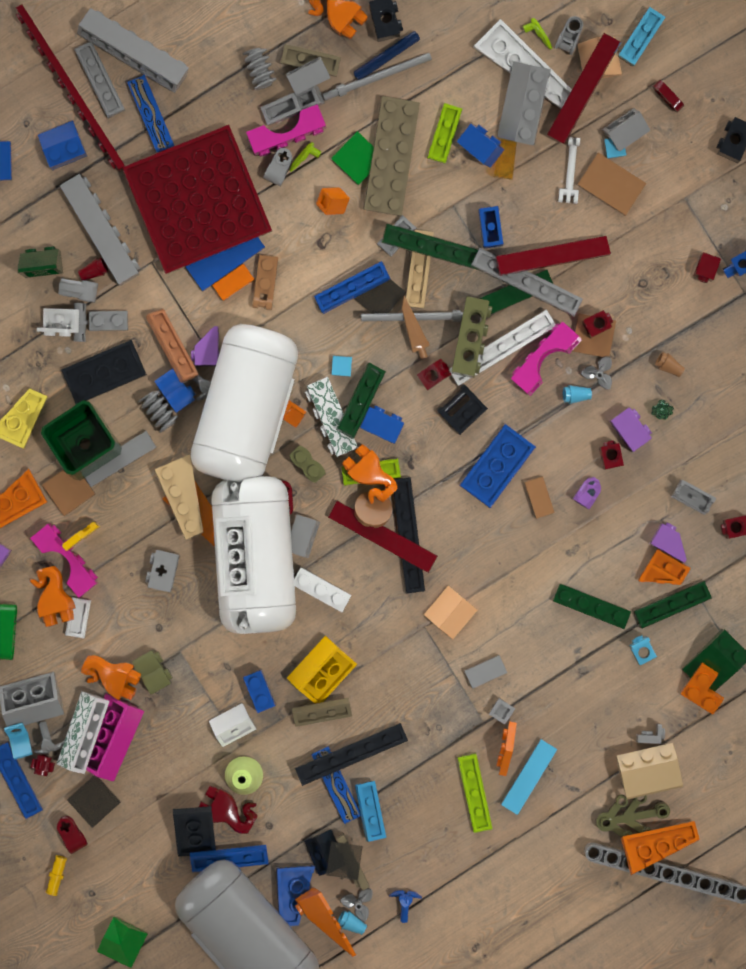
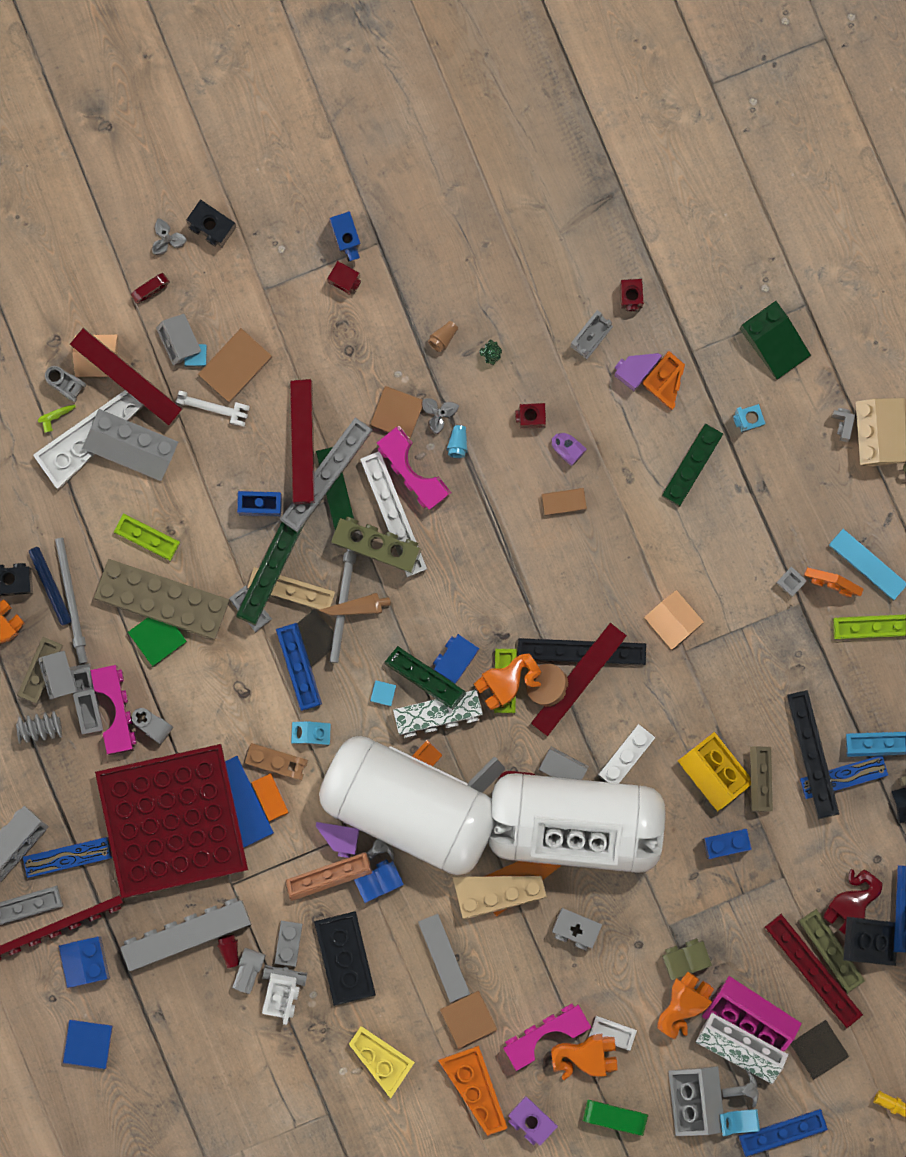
camera: 80 degrees left, 5 degrees down
(40, 263) = (210, 1007): dark green slope -> none
(42, 765) = (770, 1100): dark red gear -> none
(67, 432) = (400, 1001): dark green plate -> none
(72, 838) = (856, 1080): dark red piece -> none
(75, 539) = (523, 1013): yellow tile -> none
(158, 410) = (398, 903): light grey piece -> none
(161, 785) = (813, 971): none -> dark red tile
(182, 797) = (831, 950): none -> olive tile
(232, 725) = (759, 881): white panel -> none
(244, 767) = (808, 877): yellowish green cone -> none
(283, 469) = (487, 775): none -> light grey slope
(295, 309) = (311, 732): none -> medium azure bracket
(303, 459) = (480, 751): olive brick -> none
(309, 149) = (142, 695): lime bar -> none
(332, 201) = (199, 672): orange panel -> none
(428, 377) = (413, 599): dark red brick -> none
(466, 414) = (460, 566): black plate -> none
(480, 145) = (167, 499): blue brick -> none
(485, 671) = (745, 592): light grey tile -> none
(497, 466) = (522, 541): blue tile -> none
(505, 163) = (187, 476): clear yellow slope -> none
(589, 323) = (385, 414): dark red brick -> none
(631, 429) = (506, 389): medium lavender brick -> none
(641, 36) = (80, 305): medium azure plate -> none
(672, 604) = (704, 377): dark green tile -> none
(698, 689) = (802, 365): orange plate -> none
(722, 98) = (162, 229): none -> light grey plant

